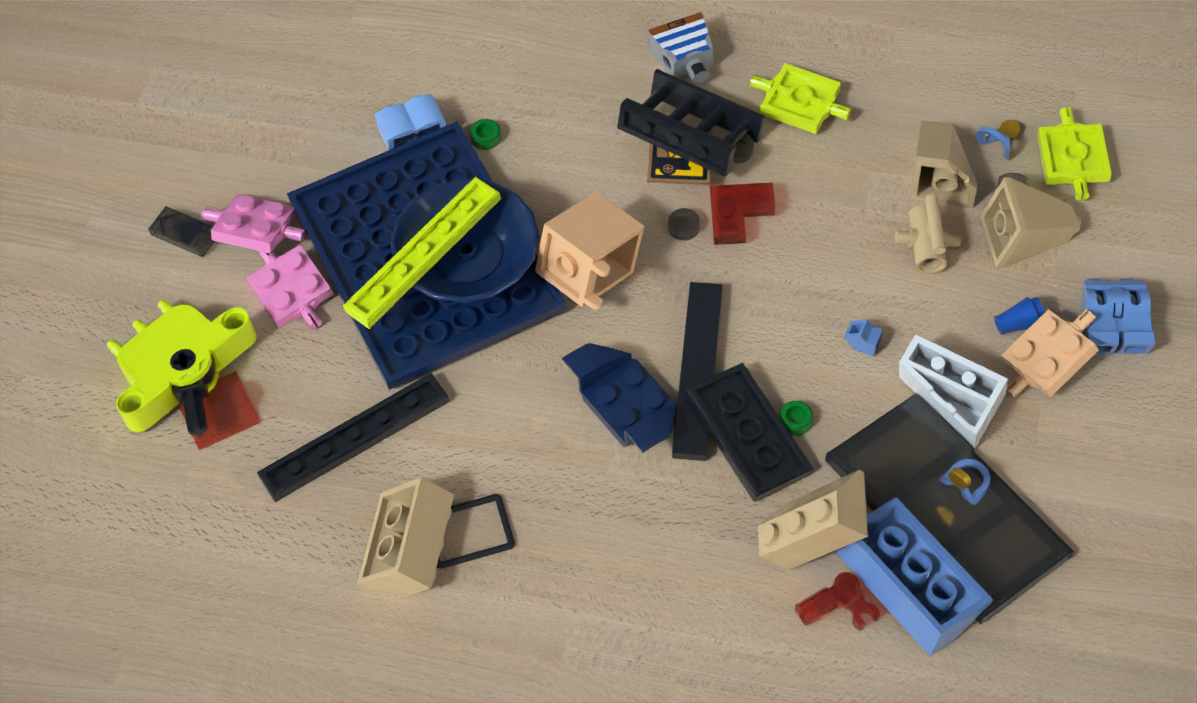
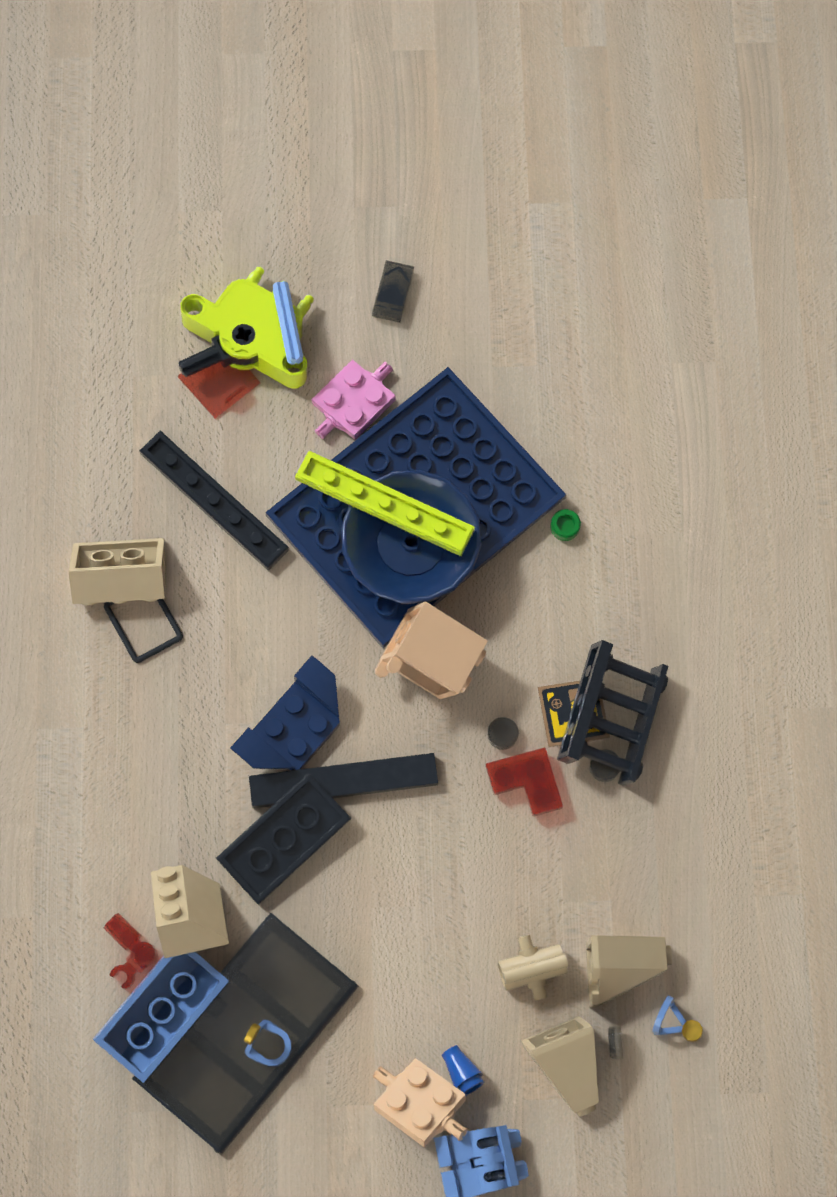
camera: 70 degrees right, 15 degrees up
(187, 313) = (287, 322): none -> light blue axle
(253, 223) = (410, 348): bright pink plate -> none
(409, 120) = (555, 452): light blue brick -> none
(683, 47) = (710, 688): torso -> none
(796, 417) = (310, 879): green tile -> none
(800, 98) = (677, 813): neon yellow plate -> none
(864, 336) = (408, 925): medium blue piece -> none
(953, 387) = (362, 1016): white wedge -> none
(1074, 154) = (671, 1098): neon yellow plate -> none

